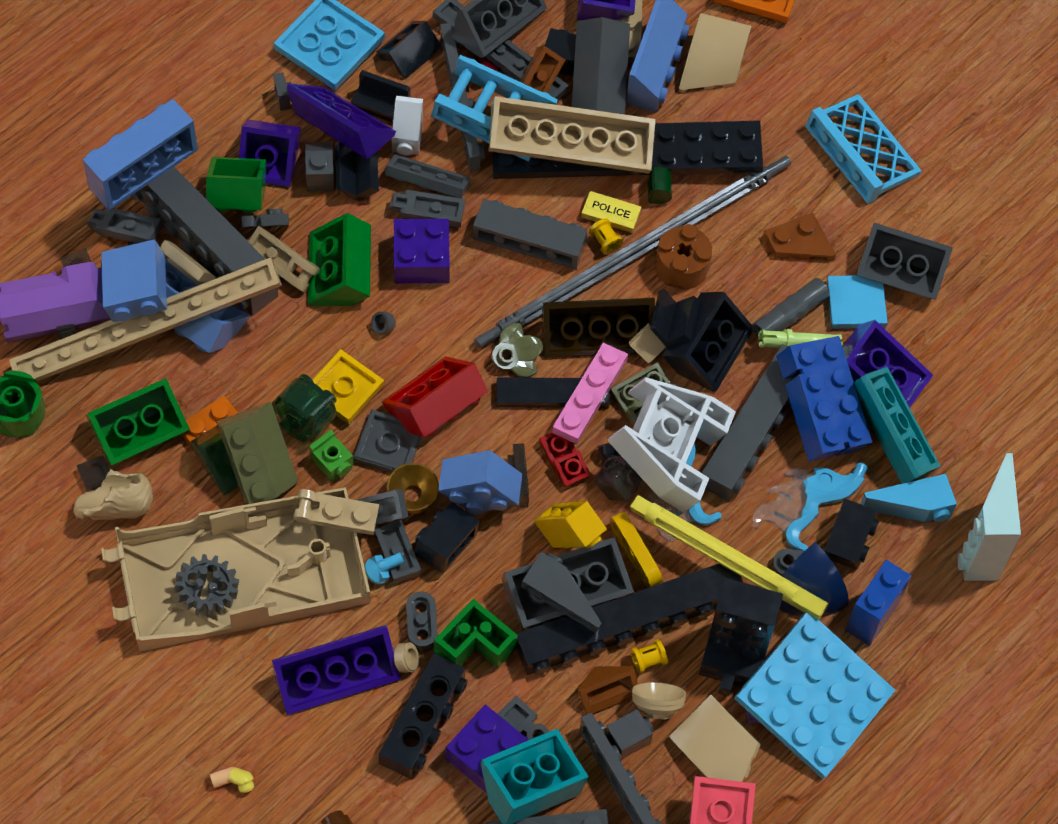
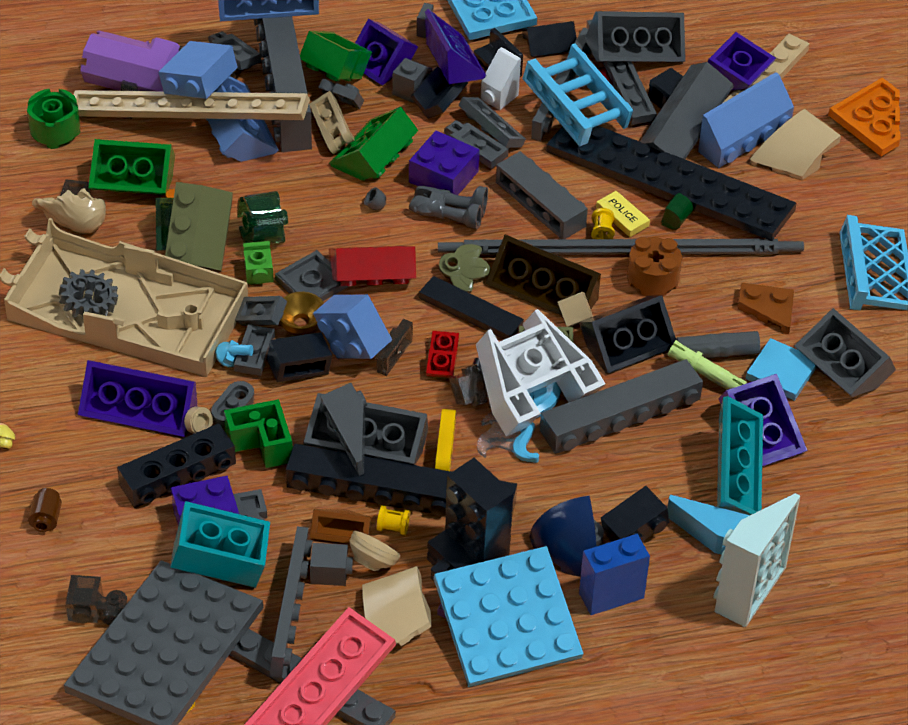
camera: 35 degrees right, 15 degrees down
(186, 264) = (250, 80): tan slope -> none
(337, 512) = (223, 292): tan plate -> none
(350, 384) = (311, 226): yellow plate -> none
(438, 294) = (467, 210): none -> dark grey piece
(542, 69) = (641, 90): dark orange slope -> none
(570, 525) = (398, 385): yellow brick -> none
(571, 134) = (622, 134): tan arch -> none
(590, 393) = (497, 318): bright pink plate -> none
(673, 320) = (605, 297): black panel -> none
(728, 557) = (513, 479): light yellow piece -> none
(800, 499) = (616, 481): piece -> none
(824, 399) = (688, 410): blue piece -> none

